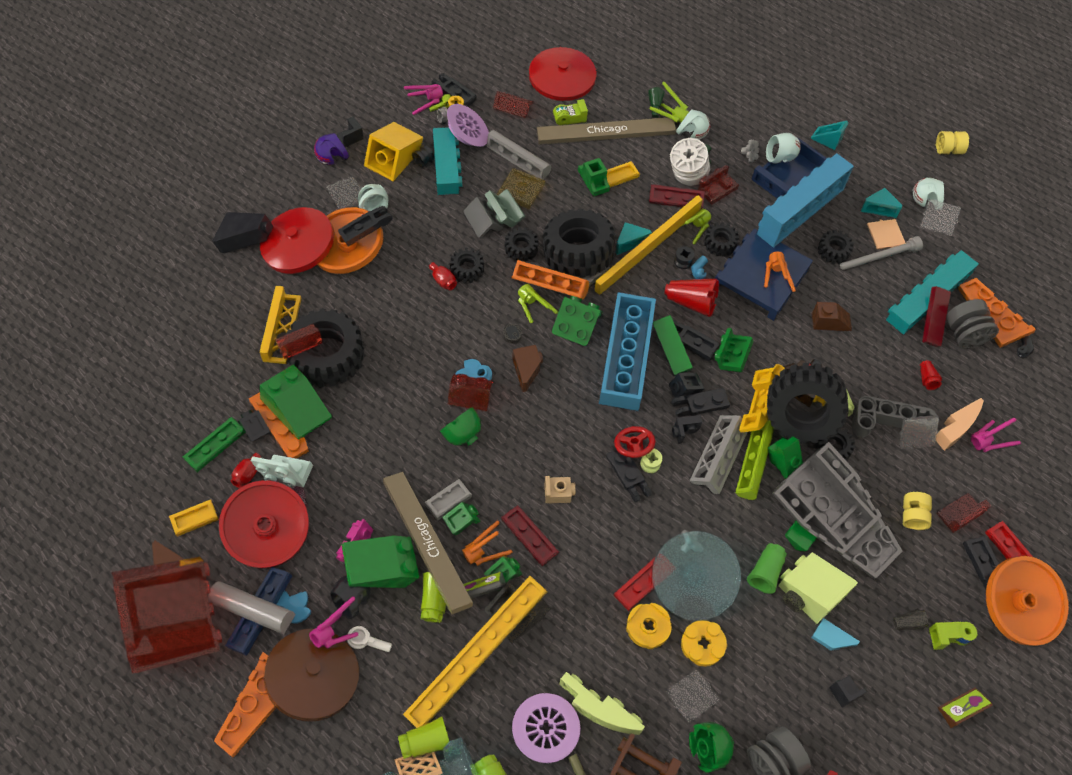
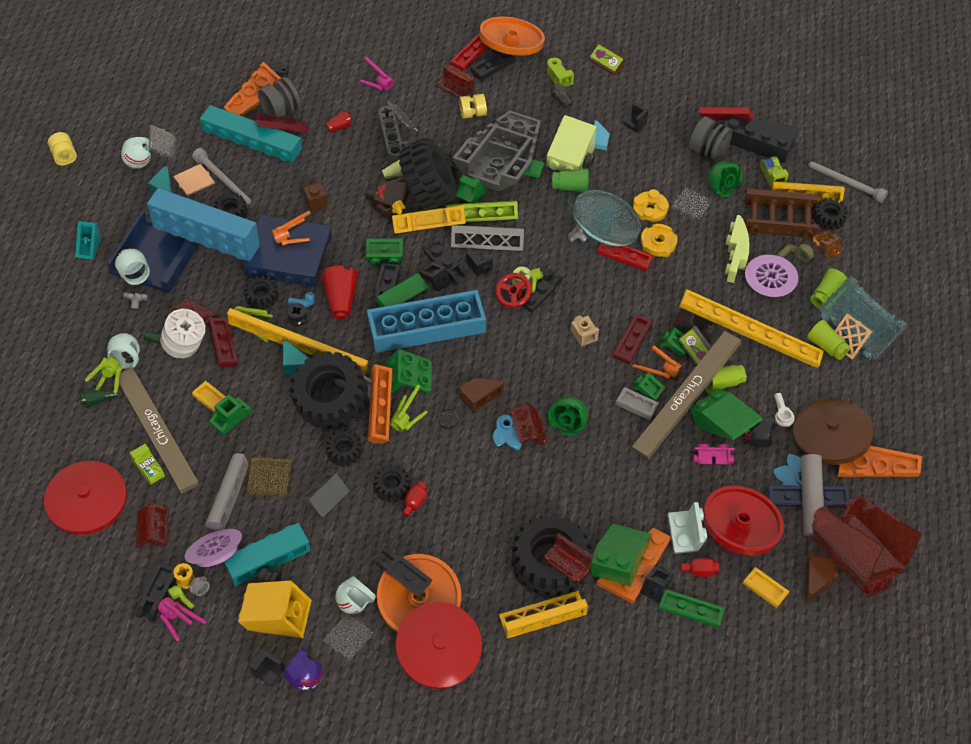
camera: 110 degrees left, 5 degrees down
(241, 230) = (454, 701): black slope -> none
(323, 633) = (804, 428): dark pink plant -> none
(505, 207) = (306, 474): sand green bracket -> none
(645, 468) = (535, 274): none -> lime hand
(958, 424) = (377, 94): light nougat slope -> none

